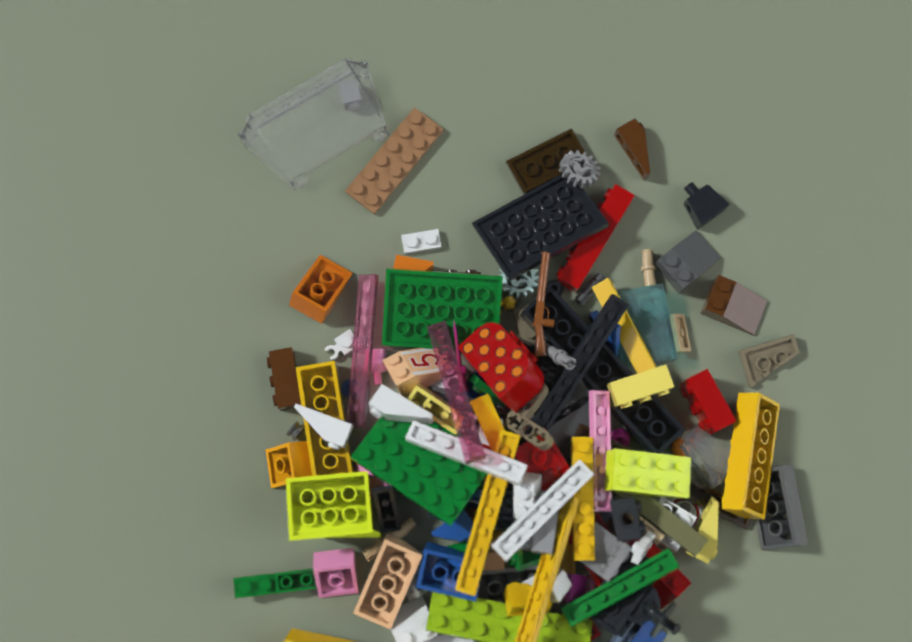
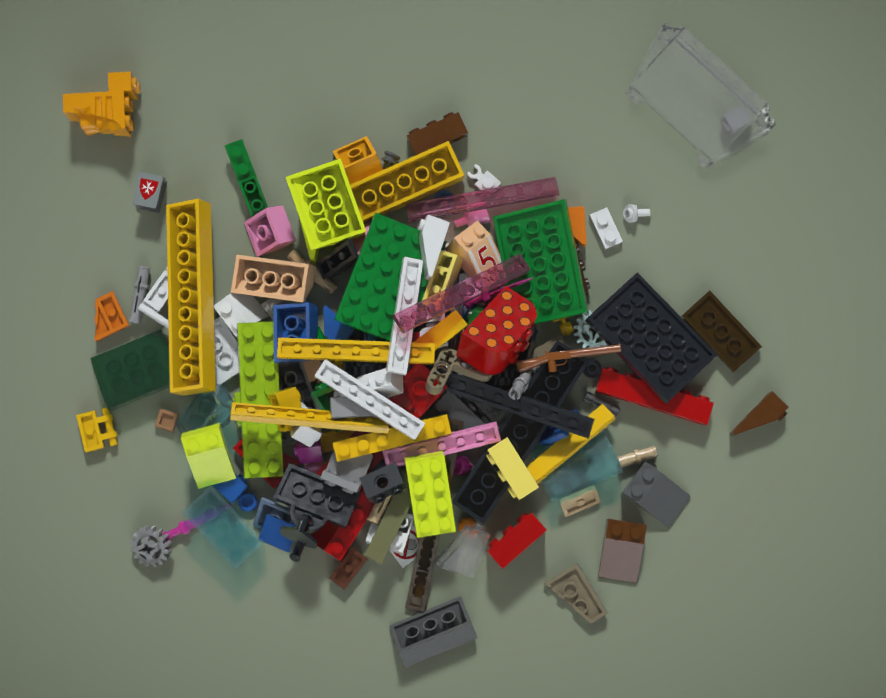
camera: 80 degrees right, 5 degrees up
(320, 289) = (532, 144): orange slope -> none
(329, 428) = (397, 186): white slope -> none
(394, 161) = (681, 181): medium nougat plate -> none
(412, 213) = (631, 213): none -> white plate
(579, 169) = (718, 363): light grey gear -> none
(620, 587) = (318, 491): green plate -> none
(641, 548) = (358, 501): white plate -> none
(698, 576) = (348, 568): none -> copper plate
(703, 204) = (718, 497): black torso -> none
(708, 528) = (390, 567): light yellow slope -> none
(751, 456) = (474, 592): yellow brick -> none

